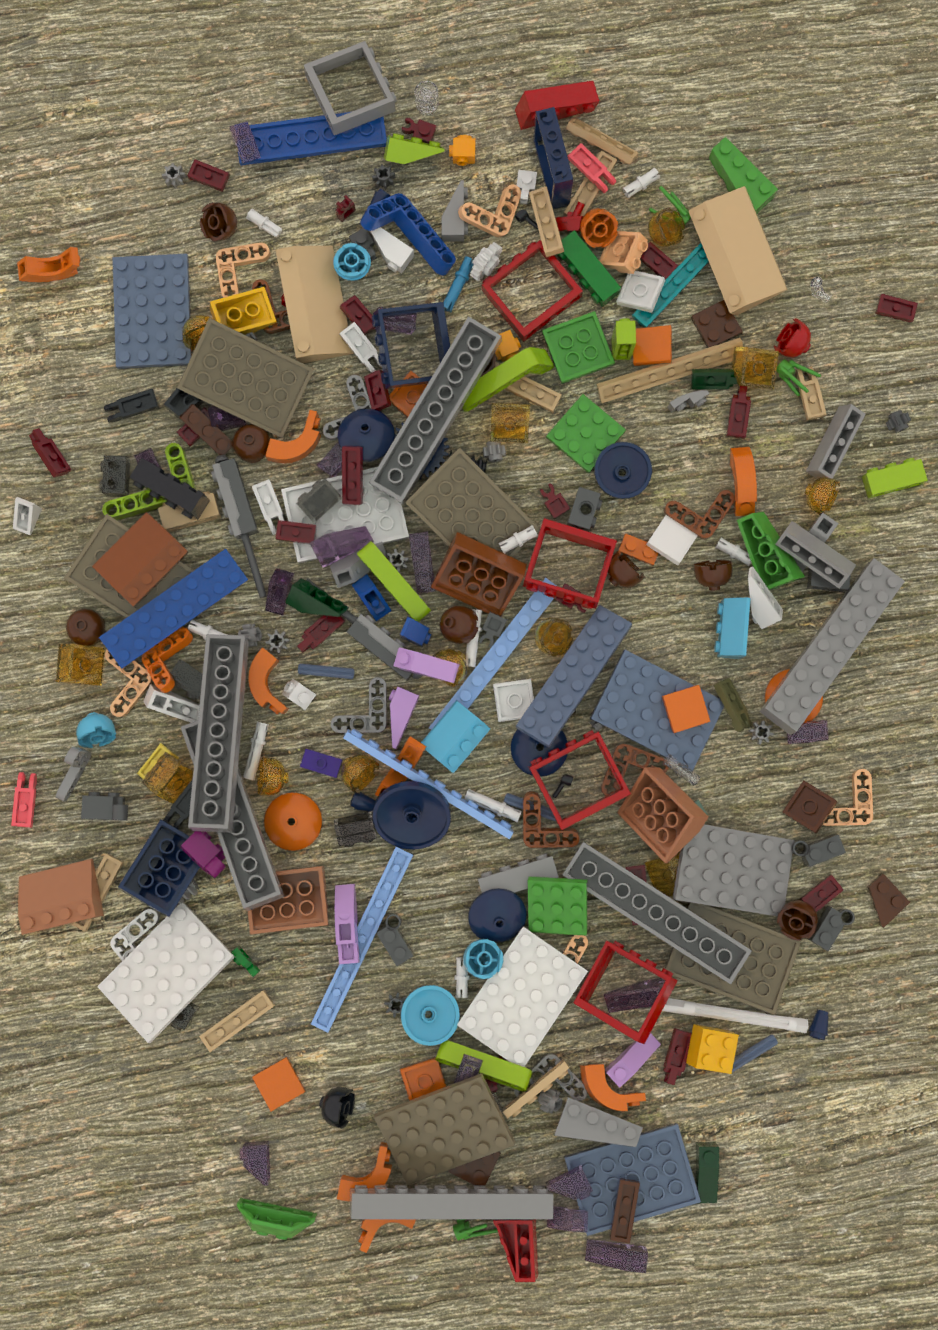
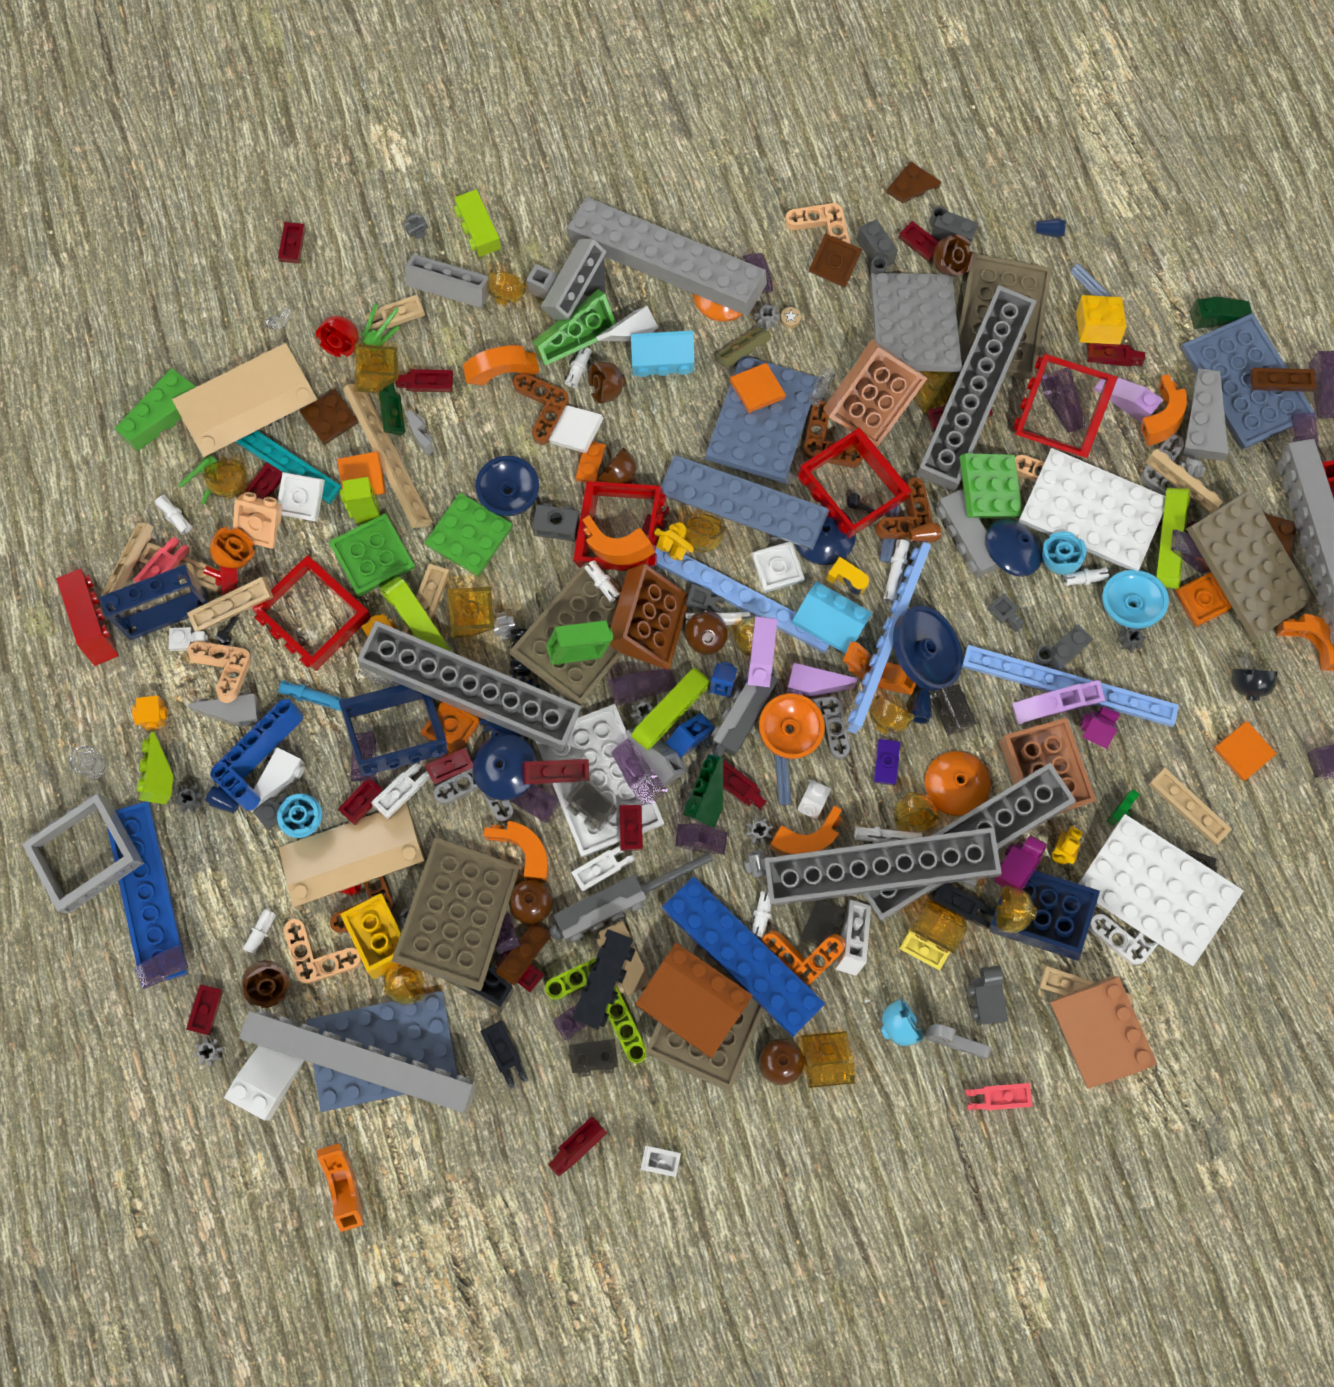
camera: 105 degrees left, 10 degrees down
(133, 683) = (837, 991): light nougat beam -> none
(139, 287) = (355, 1061): none -> light grey brick
(145, 216) = (263, 1082): none -> white slope
(163, 839) = (1015, 910): none -> clear yellow cylinder
(219, 903) = (1067, 846): none -> yellow hips
(316, 954) = (1099, 727): none -> magenta hinge
(345, 208) = (233, 837): dark red plate -> none
(347, 682) = (804, 719): none -> orange dish
(422, 130) = (128, 766): dark red plate -> none
(441, 895) = (1004, 610): none -> dark grey plate
(455, 506) = (579, 642): none -> bright green window
(486, 261) = (284, 663): white gear -> none
(490, 766) = (849, 576): none -> yellow leg
(521, 836) = (925, 533): none -> dark orange cone
(539, 564) = (618, 551): none -> orange arch
(547, 608) = (674, 538): none -> yellow hips
(556, 503) = (553, 553): dark red plate -> none
(571, 1184) = (1270, 433): clear purple slope -> none
(588, 269) = (282, 553): green brick -> none
(736, 1015) = (1059, 300): white piece -> none
(758, 755) = (790, 317): none -> tan tile

